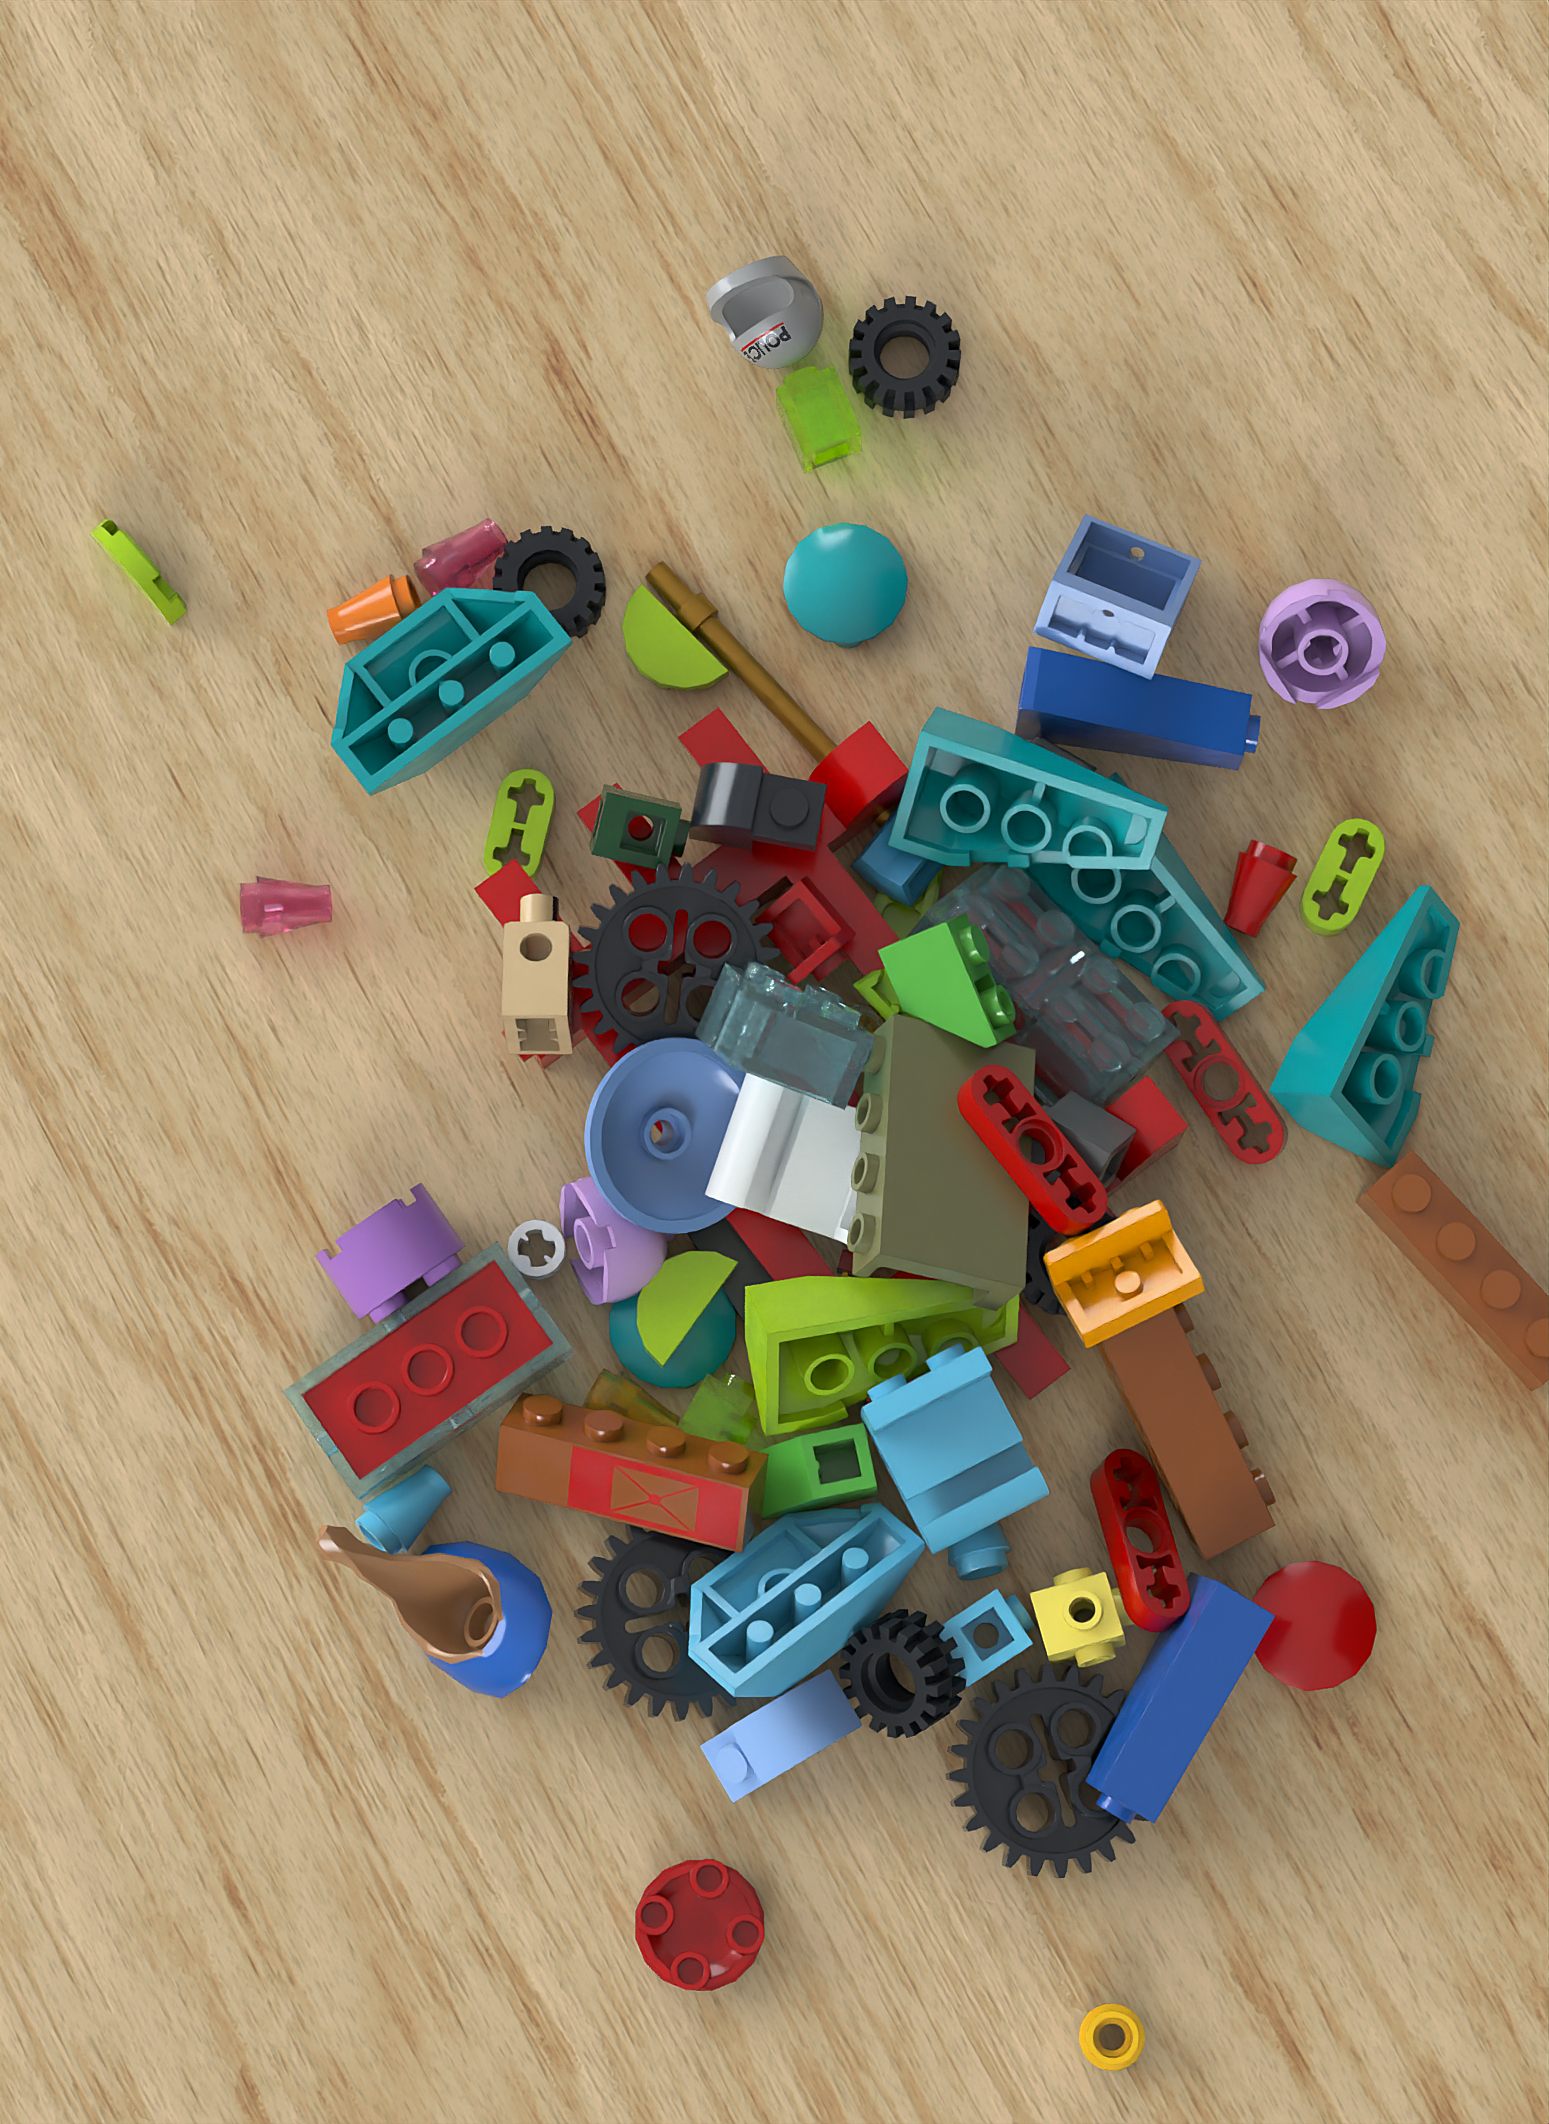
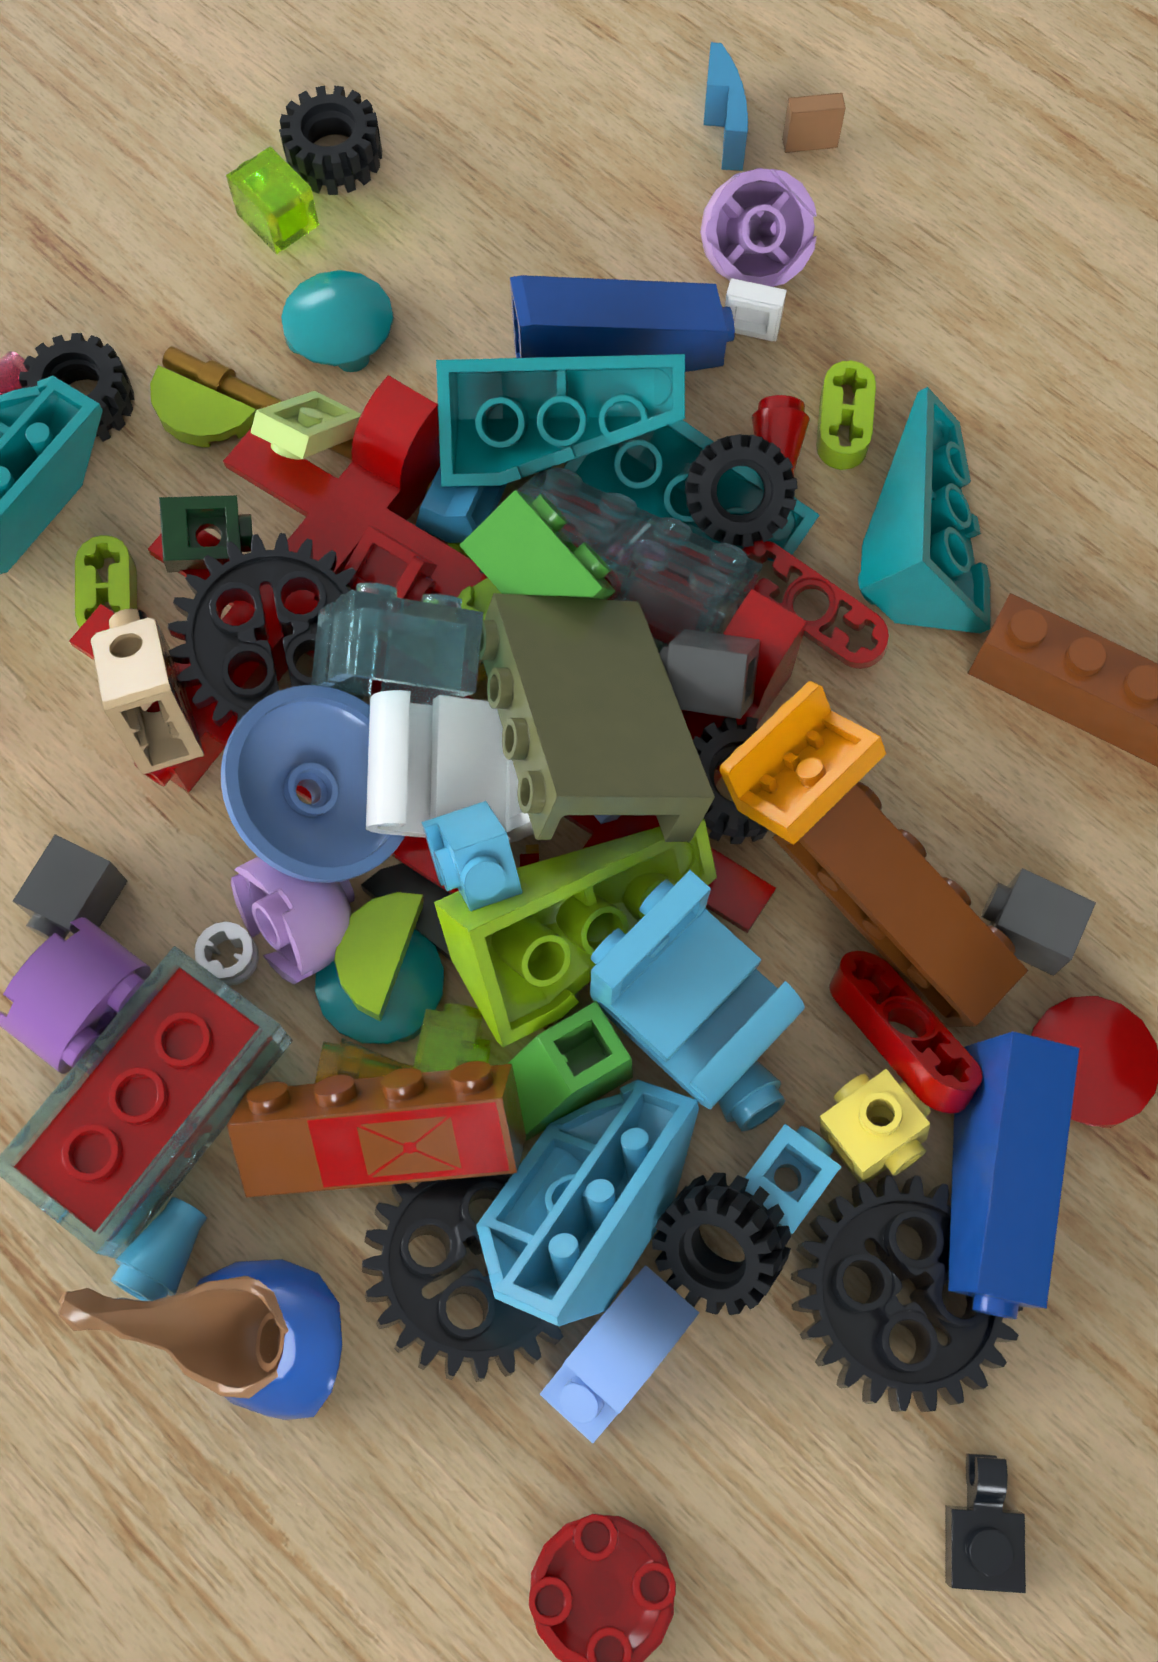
camera: 20 degrees left, 10 degrees down
(406, 1143) = (68, 886): none -> dark grey brick
(746, 805) = (297, 475): black brick -> none
(768, 312) = (217, 137): light grey helmet -> none
(776, 724) = (305, 425): none -> yellowish green plate
(793, 1258) = (473, 855): none -> medium azure brick
(1033, 1121) = (723, 711): red beam -> none
(1041, 1996) = (984, 1539): none -> black plate
(1132, 2042) = (1095, 1564): yellow plate -> none
(1140, 592) = (550, 244): medium blue window -> none
(1181, 983) = (777, 497): none -> black tyre
(1288, 726) = (755, 308): none -> white tile
(1309, 1478) = (1039, 919): none -> dark grey brick
(1354, 449) = (726, 106): none -> dark azure slope
(1441, 510) = (813, 122): none -> medium nougat tile

